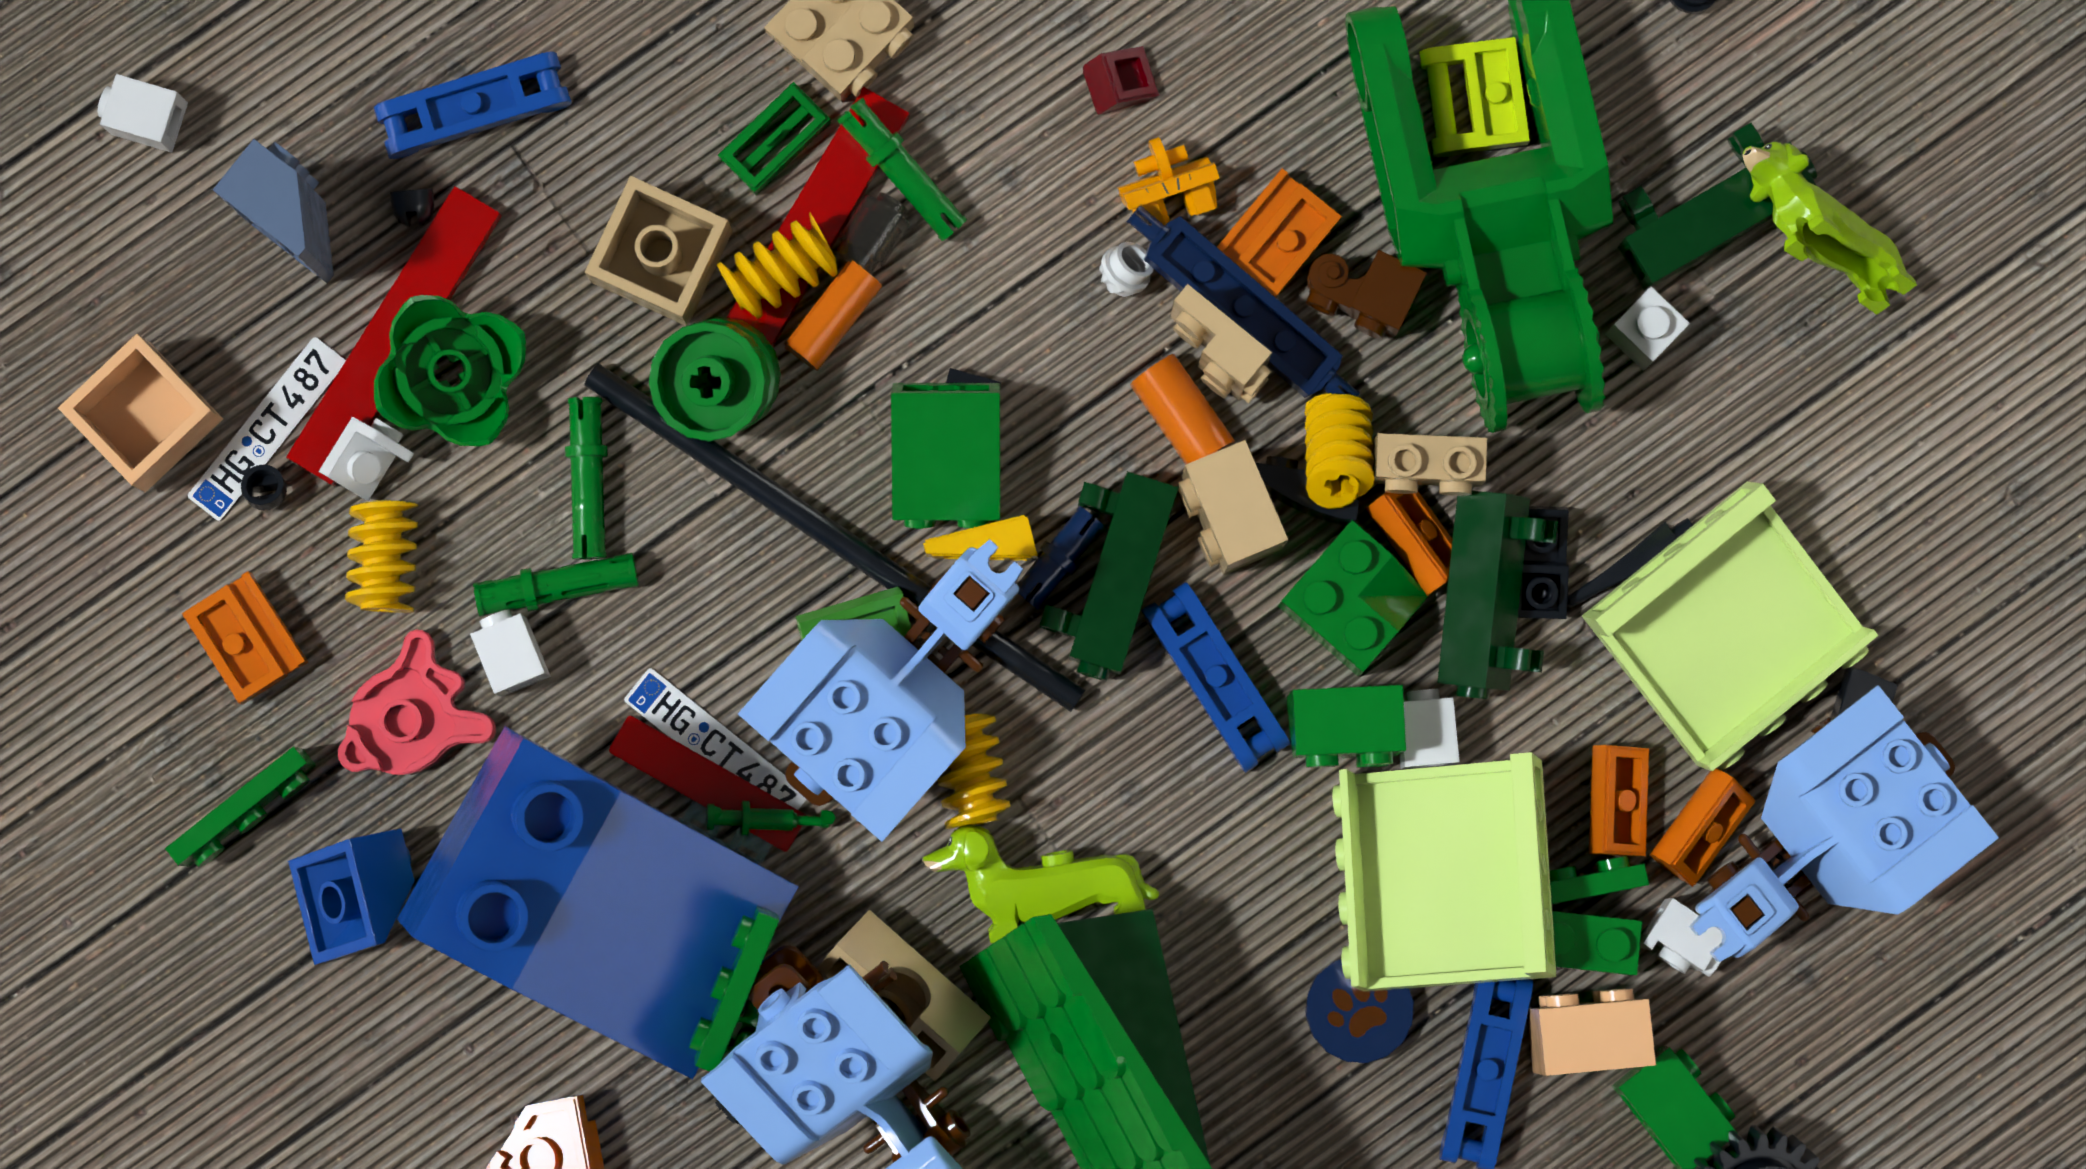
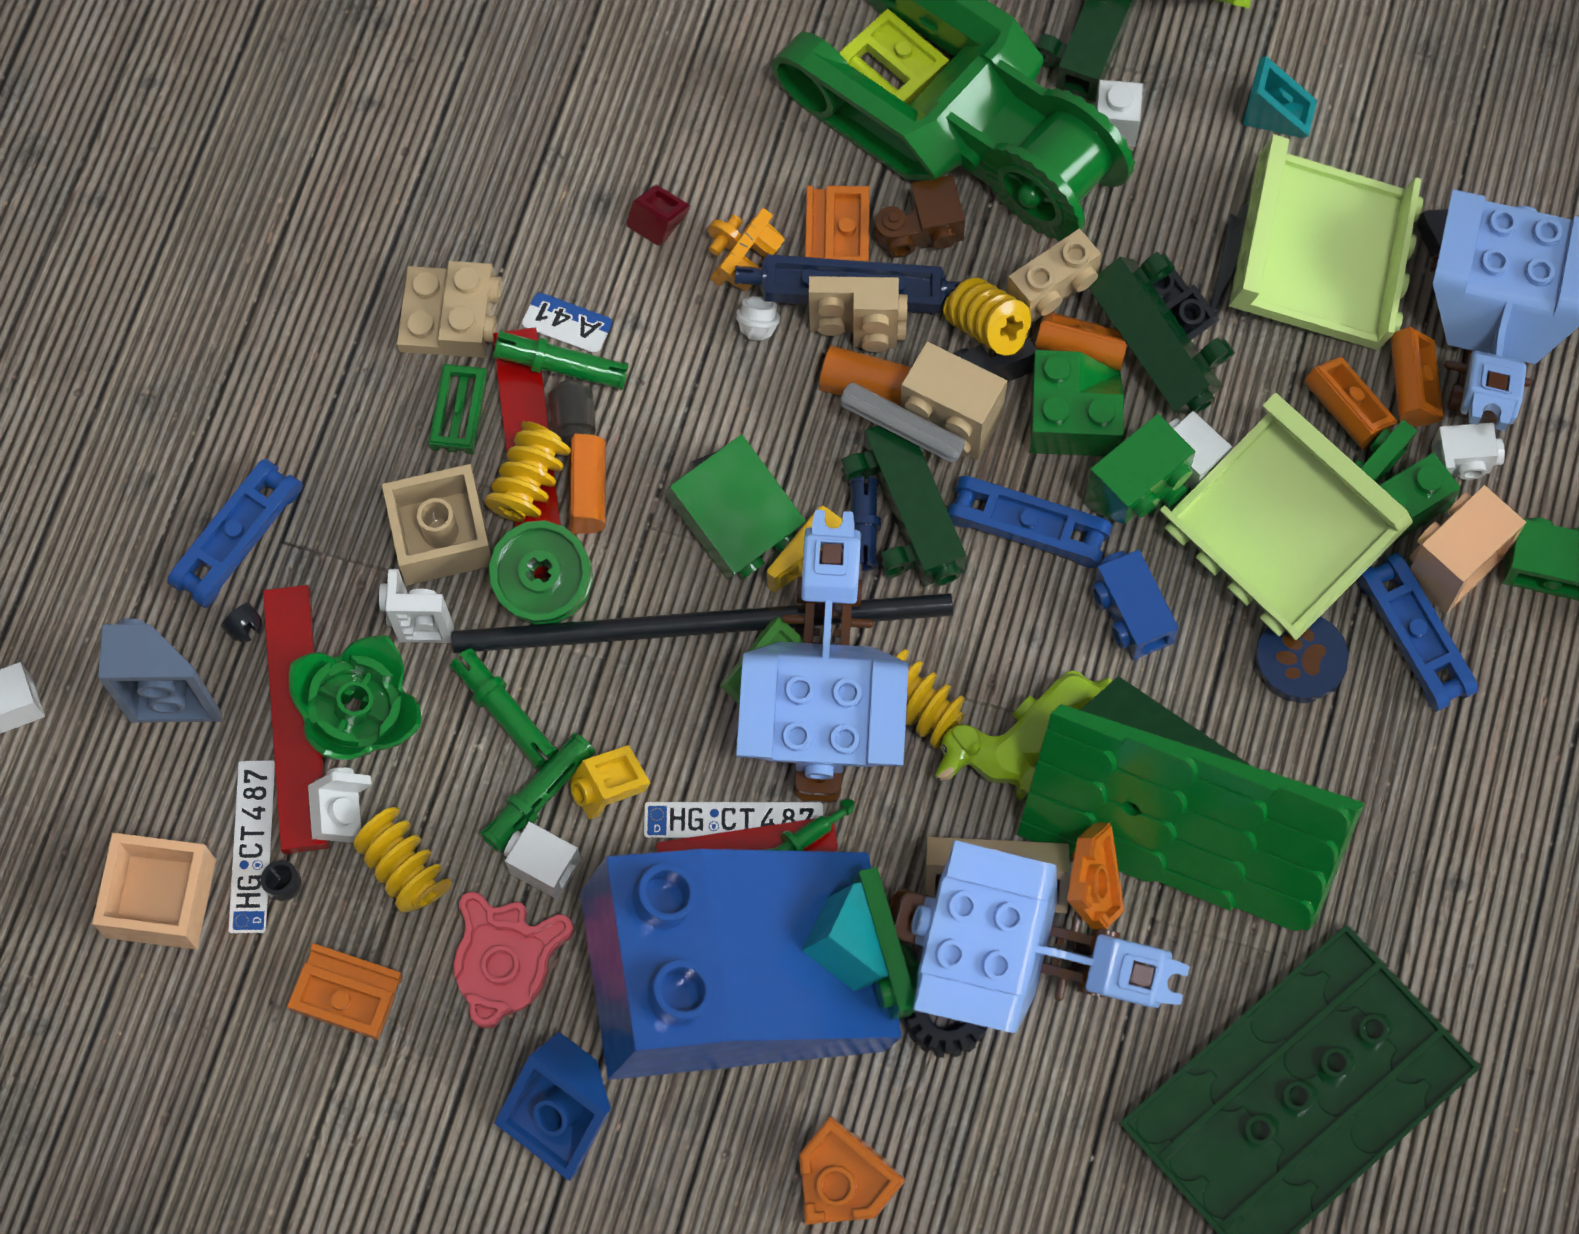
camera: 35 degrees left, 15 degrees down
(242, 809) = (434, 1108): green plate -> none
(561, 321) = (416, 615): none -> white bracket
(627, 624) = (607, 780): none -> yellow bracket
(700, 962) = (847, 940): none -> teal slope
(947, 126) = (567, 322): none -> sticker
(981, 1075) = (1095, 878): none -> orange plate
(1165, 495) = (902, 422): none -> light grey axle
(1245, 836) = (1135, 604): none -> blue brick
(1818, 442) = (1279, 102): none -> teal slope

